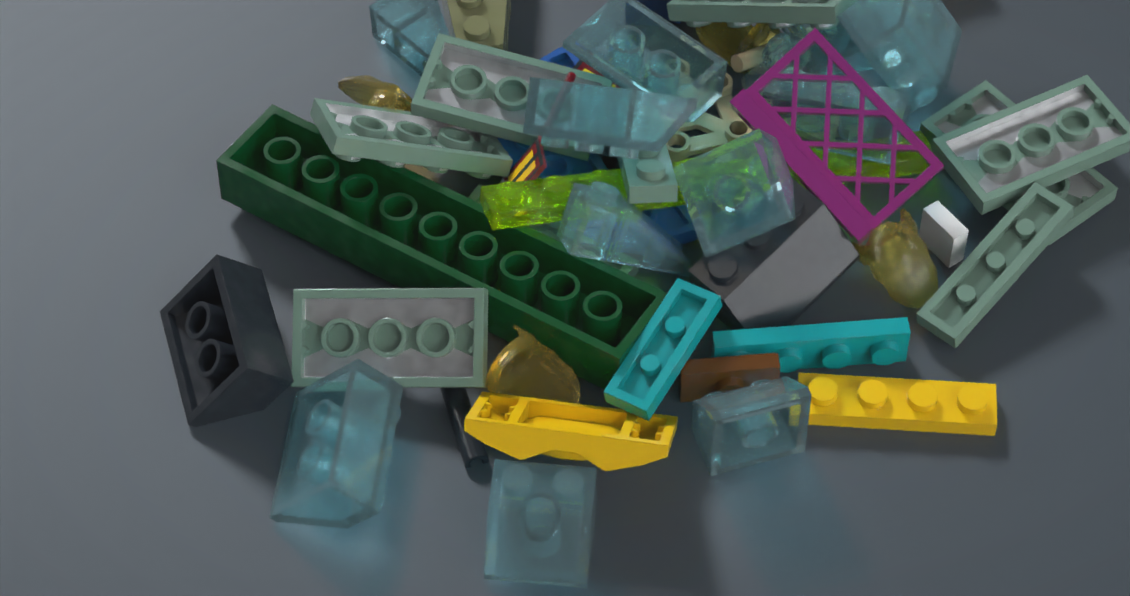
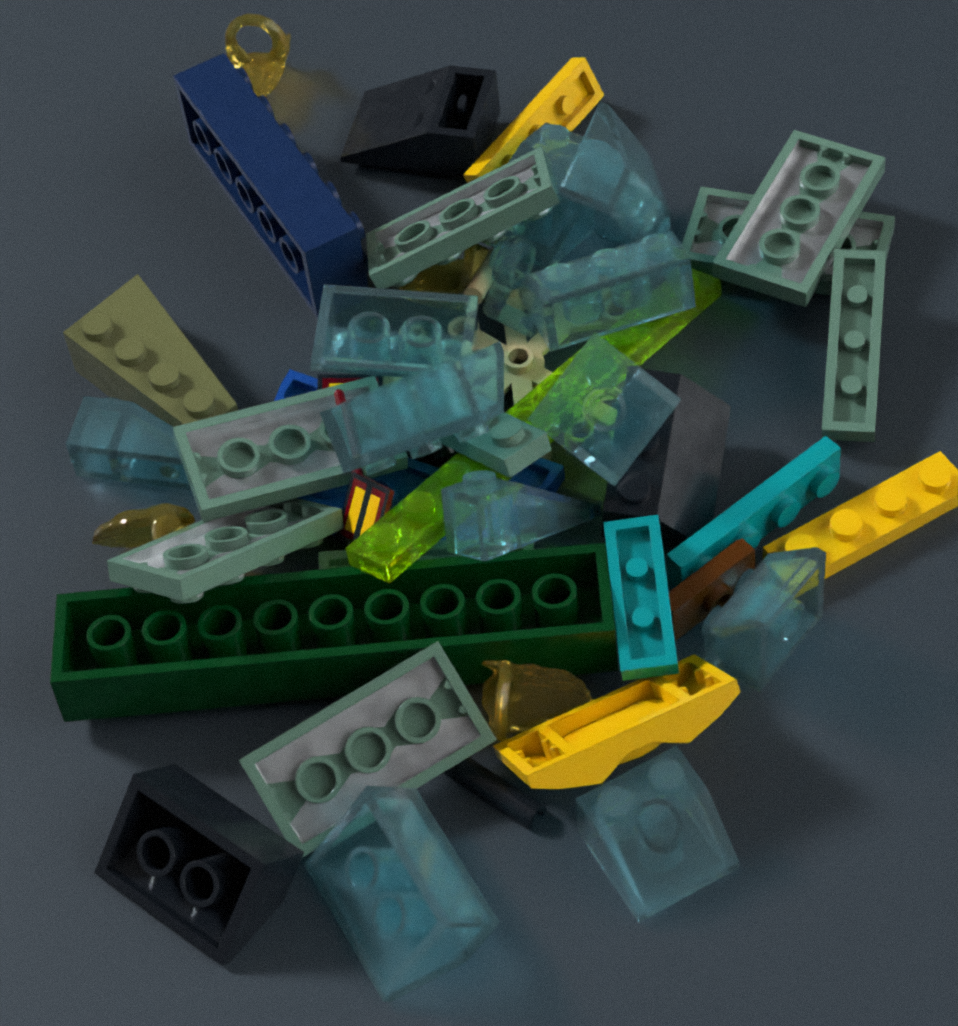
camera: 30 degrees left, 0 degrees up
(806, 165) = (571, 331): magenta fence -> none
(900, 261) = (769, 391): clear yellow piece -> none
(943, 234) = (782, 345): white tile -> none

